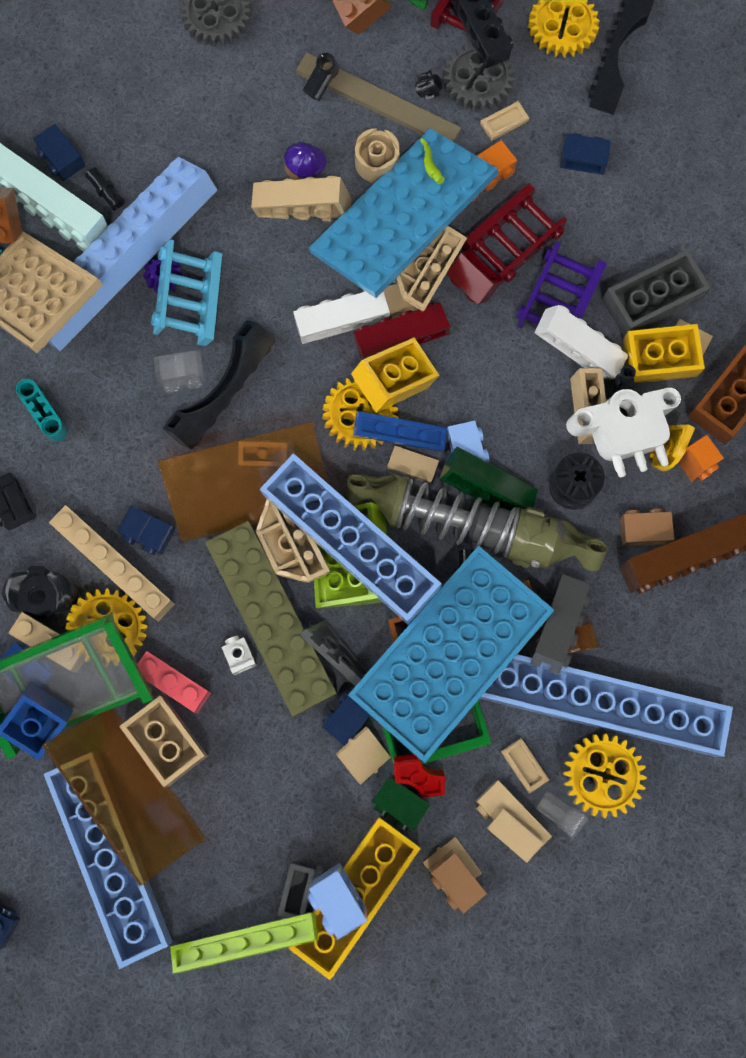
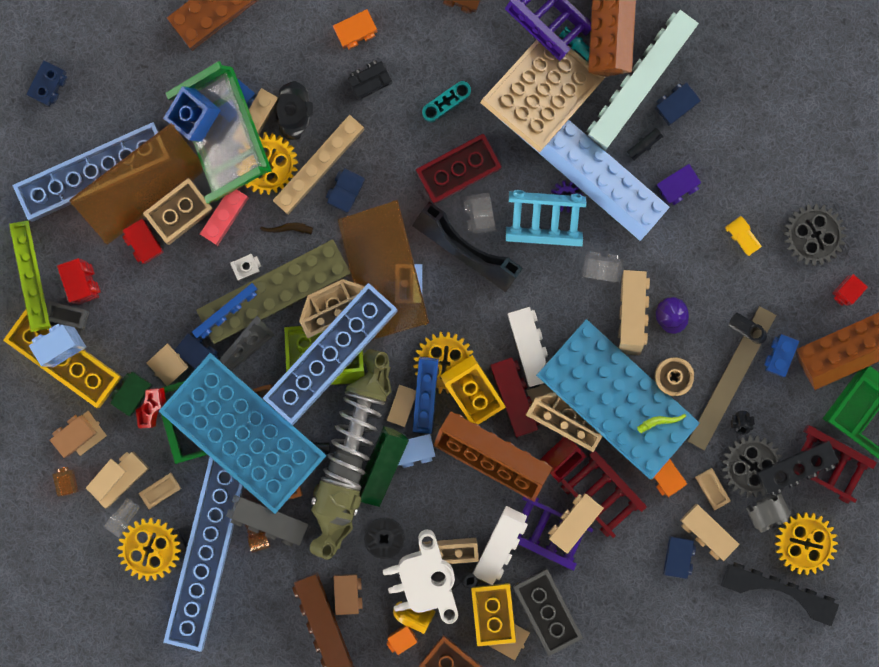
camera: 90 degrees right, 10 degrees up
(123, 394) = (458, 169): none -> dark red brick
(152, 149) = (678, 184): none -> dark purple piece
(189, 594) = (295, 226): none -> dark brown animal
(202, 789) = (142, 241): none -> red piece
(211, 87) = (741, 233): none -> yellow piece
(248, 234) = (602, 268): none -> clear brick
(251, 875) = (78, 281): none -> red brick
(301, 682) = (220, 316): none -> blue plate
(352, 44) = (781, 356): none -> blue brick
(474, 350) = (492, 456): none -> dark orange brick
(517, 892) = (65, 481): none -> clear orange brick
(531, 55) = (769, 511): none -> dark grey brick
(551, 256) = (575, 522): none -> tan brick
(555, 121) = (708, 533): none -> tan brick

